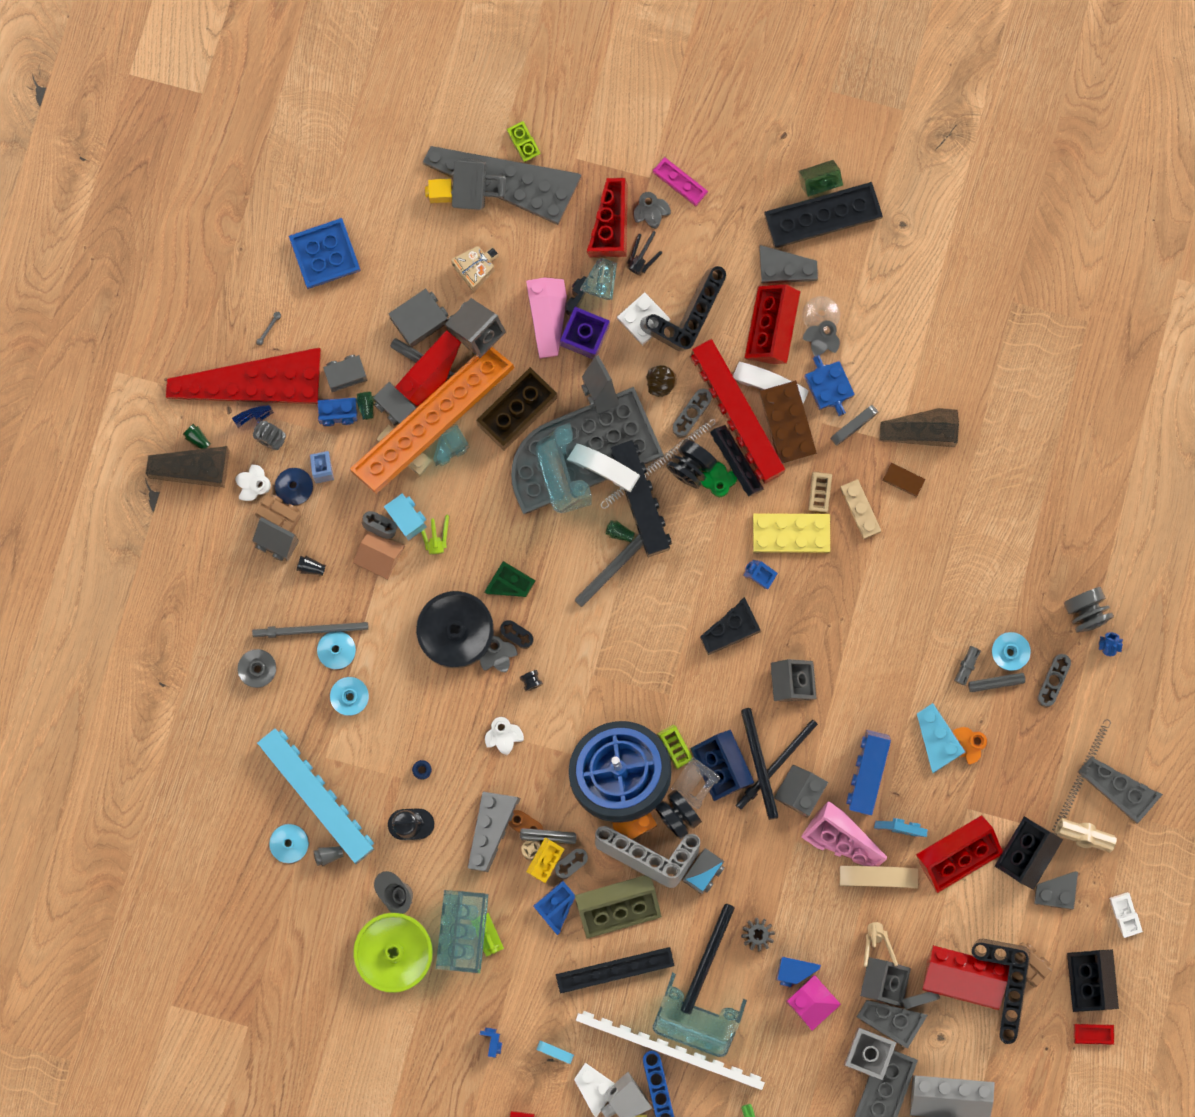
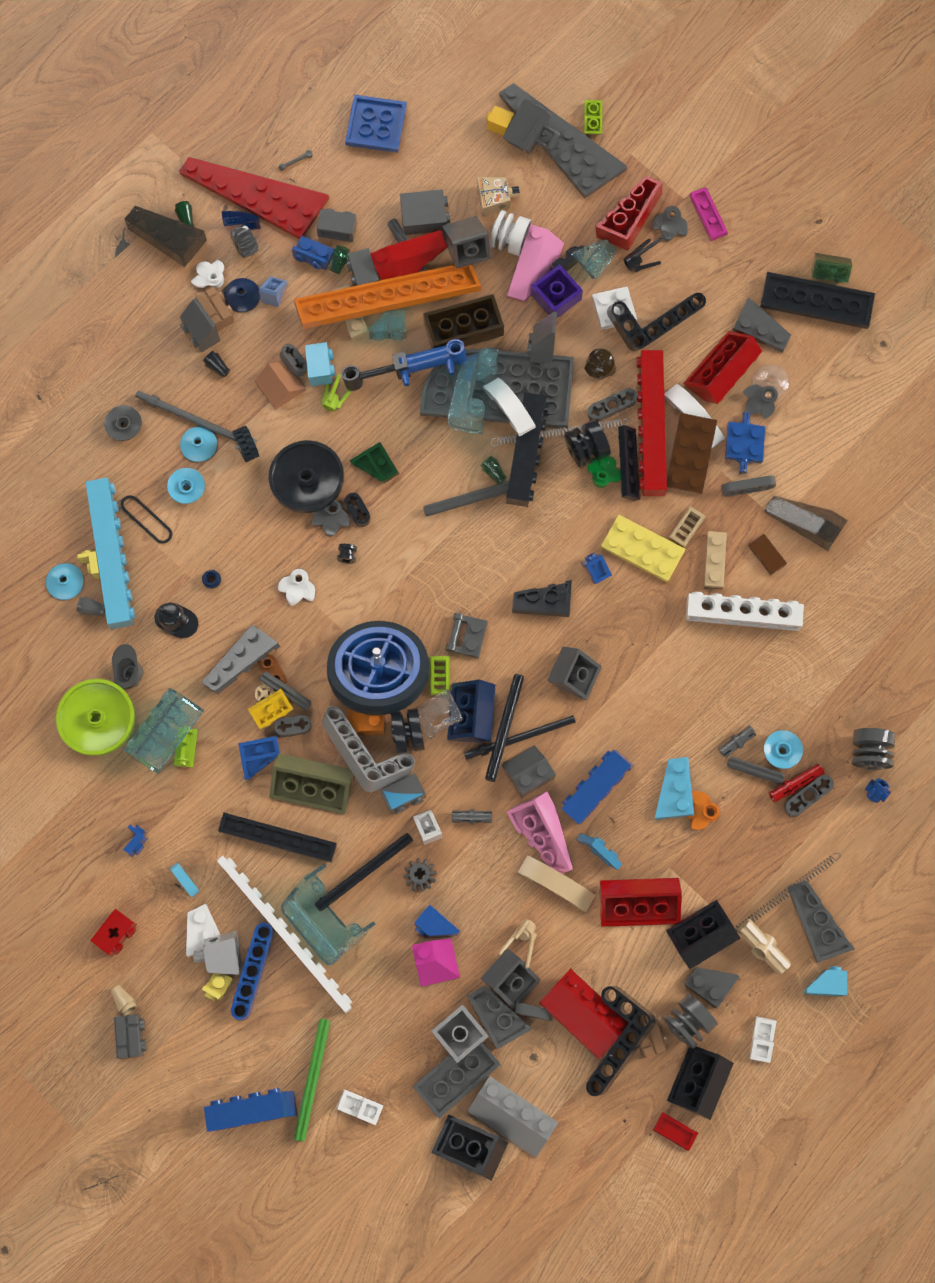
camera: 30 degrees right, 5 degrees down
(308, 815) = (91, 557): none -> light yellow bracket
(326, 753) = (160, 541): none -> black piece
(382, 628) = (245, 443): none -> black wheel
(490, 472) = (410, 363): none -> blue piece
(512, 298) = (509, 232): none -> white wheel
(685, 696) = (473, 636): none -> dark grey plate
(740, 888) = (427, 827): none -> white slope
(774, 858) = (471, 816): none -> dark grey pin
(958, 530) = (696, 613): none -> white brick
(1035, 678) = (794, 784): none -> red pin
(1058, 934) = (690, 1021): none -> dark grey wheel
(1156, 836) = (829, 983): none -> medium azure slope

